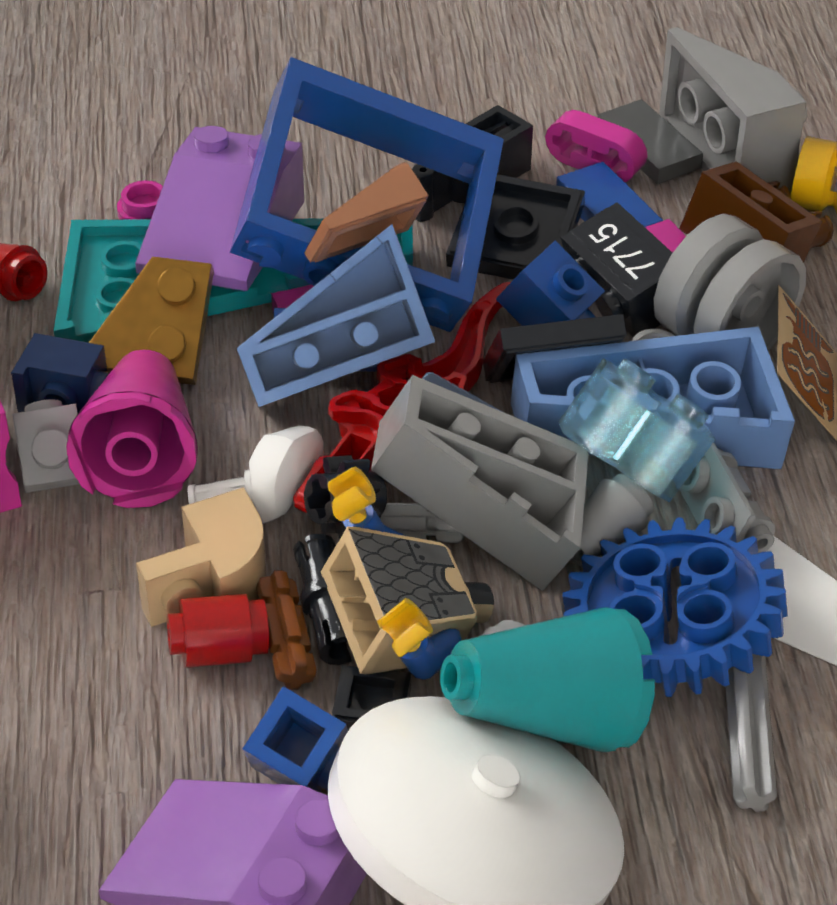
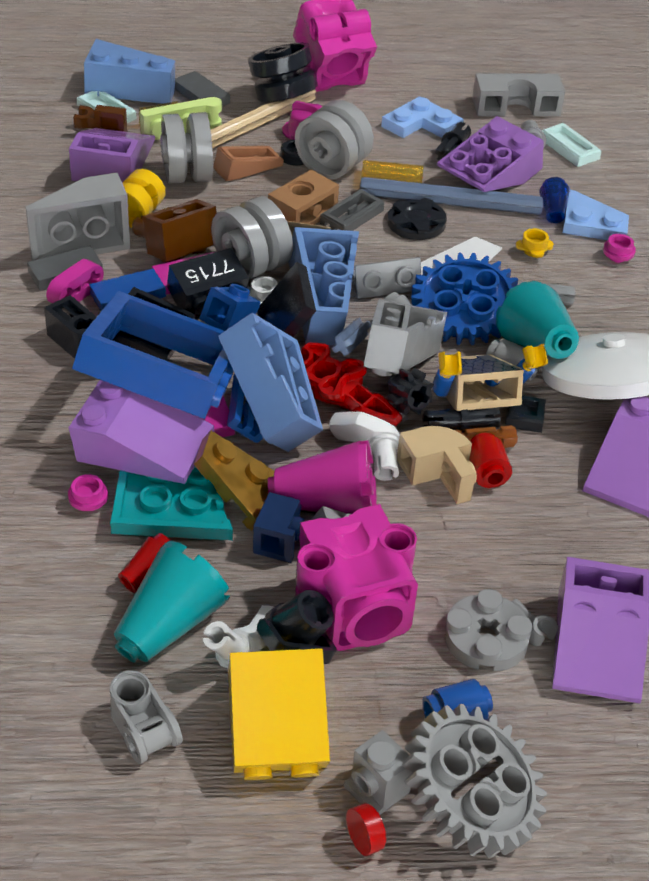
camera: 90 degrees left, 0 degrees up
(295, 742) = (579, 423): blue brick -> none
(389, 200) = (210, 335): nougat slope -> none
(637, 428) = (370, 276): clear light blue brick -> none

